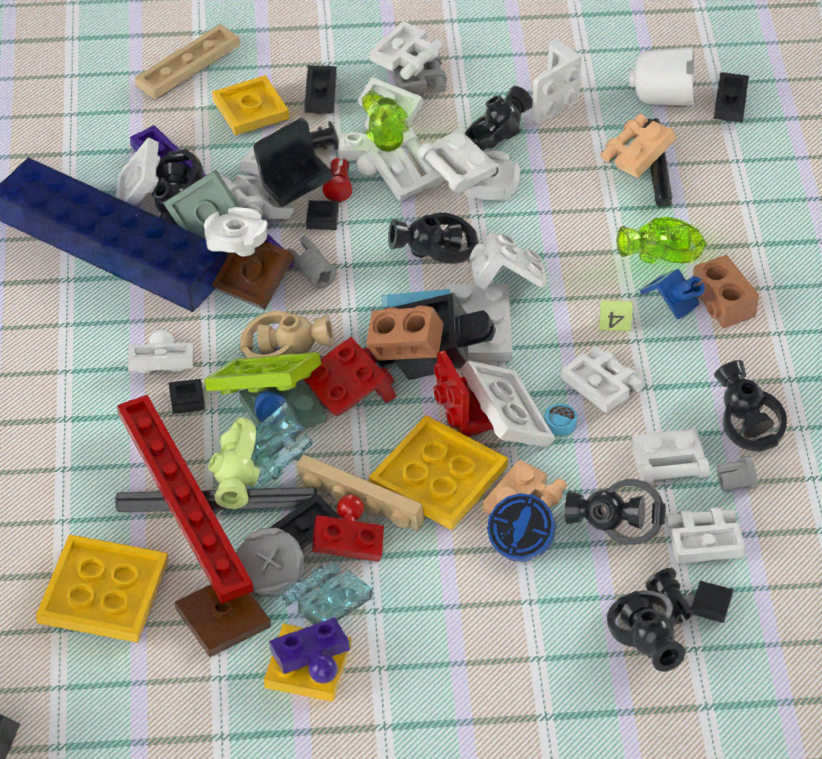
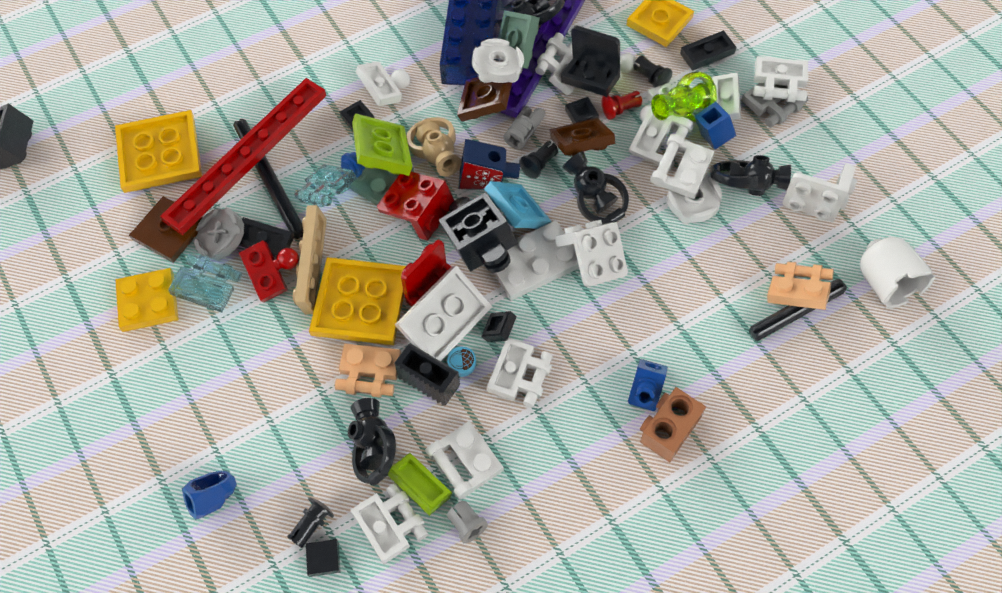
camera: 65 degrees right, 15 degrees up
(234, 465) = (287, 171): yellowish green piece -> none
(311, 647) = (140, 291): dark purple plate -> none
(348, 305) = (484, 164): none -> dark blue torso
(364, 219) = (582, 137): none -> reddish brown plate
(364, 271) = (535, 161): none -> black pin
(404, 333) = (452, 210): nougat brick -> none
(425, 118) = (715, 125): none -> blue brick
(521, 527) = (325, 381): tile -> none
(542, 373) = (499, 326): none -> black tile
(567, 441) = (427, 374): none -> black brick
(592, 668) = (208, 493): none -> blue rock
(615, 315) = (592, 351): yellowish green tile -> none
(650, 631) = (255, 522): black piece -> none
(663, 239) = (693, 344): clear neon green piece -> none
(682, 496) = (419, 484): none -> lime tile
(731, 97) = (918, 332): black plate -> none
(744, 401) = (540, 501): black piece -> none

